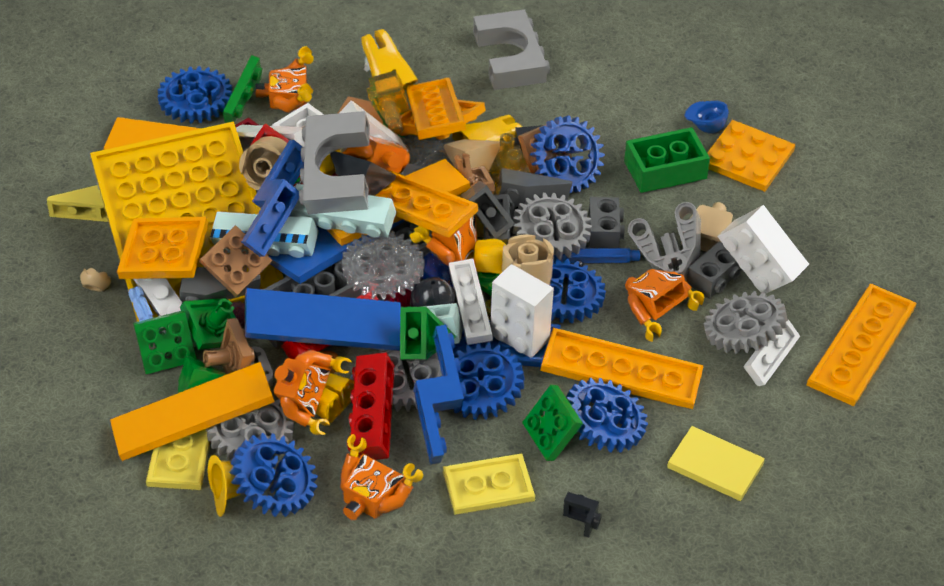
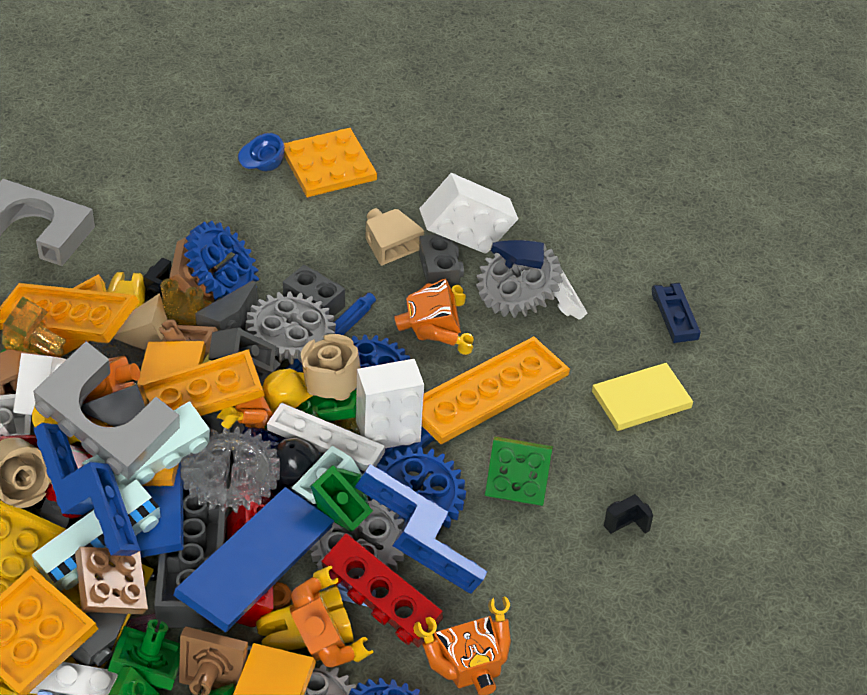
camera: 55 degrees left, 0 degrees up
(488, 484) = (533, 564): light yellow tile -> none
(608, 408) = (535, 426): blue gear -> none
(666, 159) = (289, 209): green brick -> none
(690, 236) = (401, 249): light grey connector -> none
(758, 302) = (520, 252): none -> dark blue slope
(826, 437) = (676, 312): none -> dark blue plate
(861, 344) = (597, 232): light orange tile -> none

